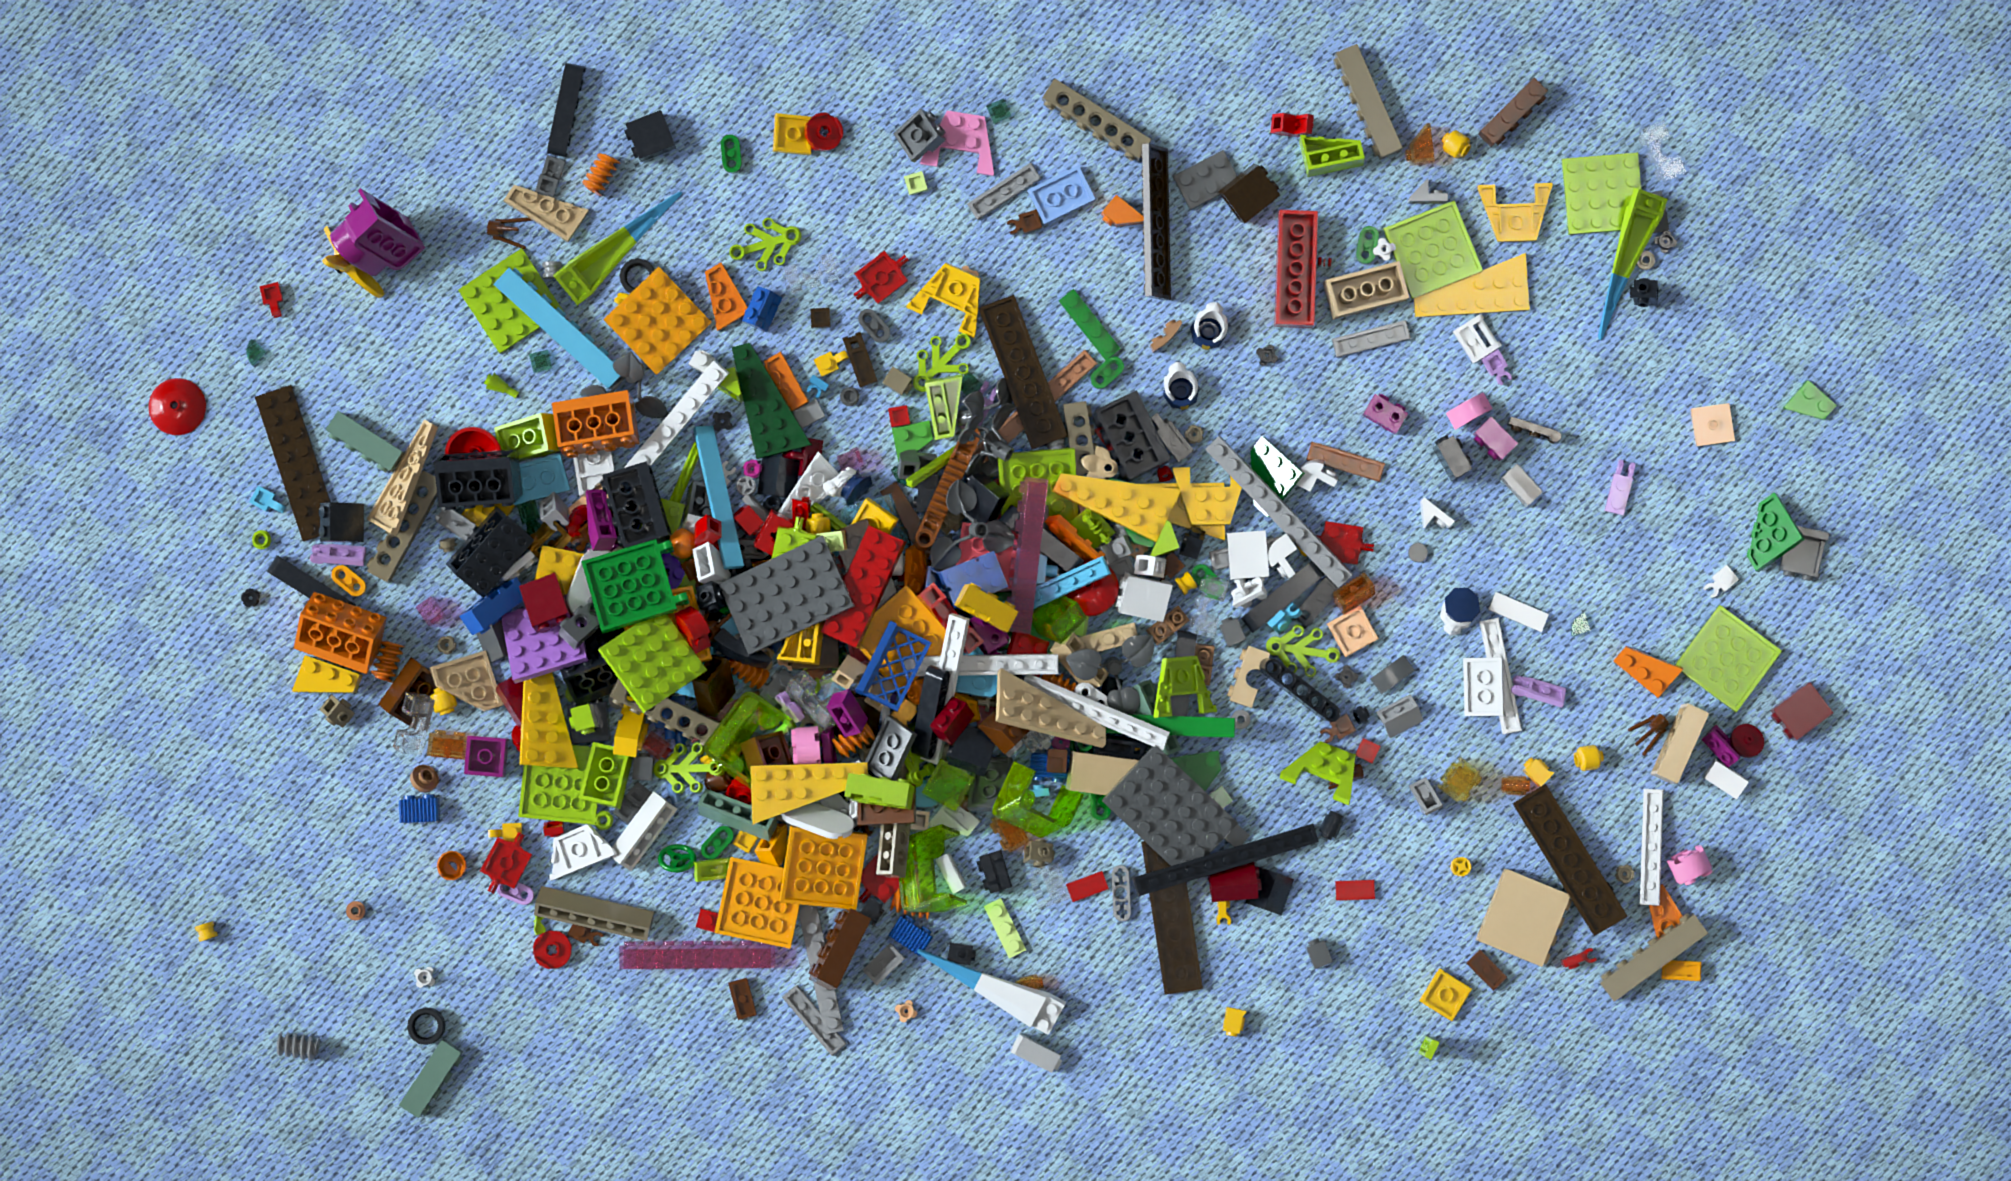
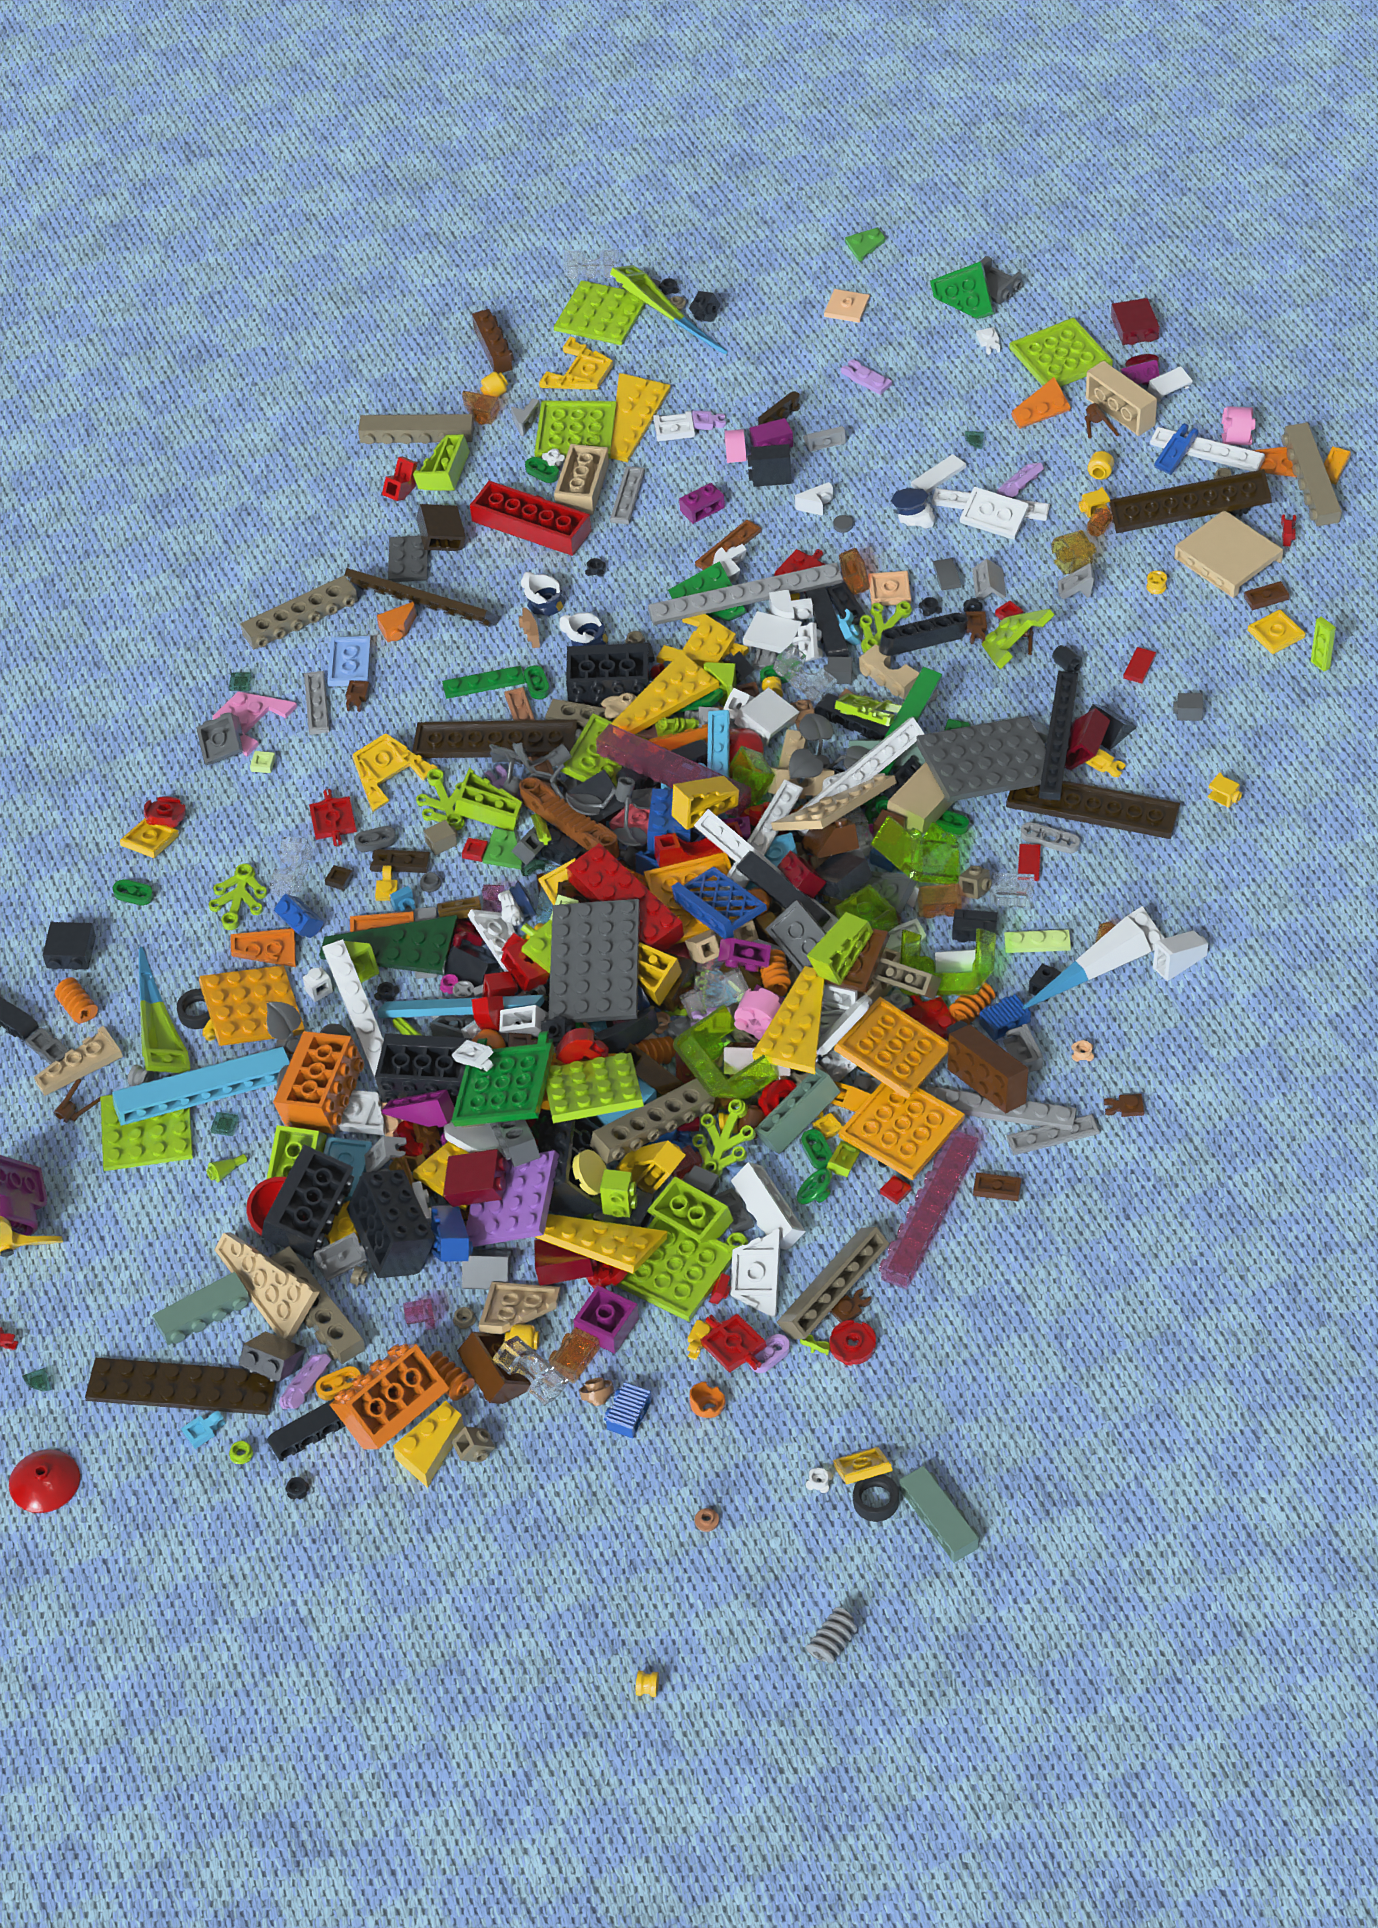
camera: 55 degrees left, 35 degrees down
(444, 1006) = (862, 1465): none -> yellow plate
(593, 688) = (589, 1169): none -> light yellow tile
(643, 549) = (474, 1055): none -> white plate
(828, 437) = (459, 907): none -> pearl gold plate
(868, 1069) = (1127, 1104): none -> reddish brown plate
(1634, 819) = (1175, 449): none -> blue hinge

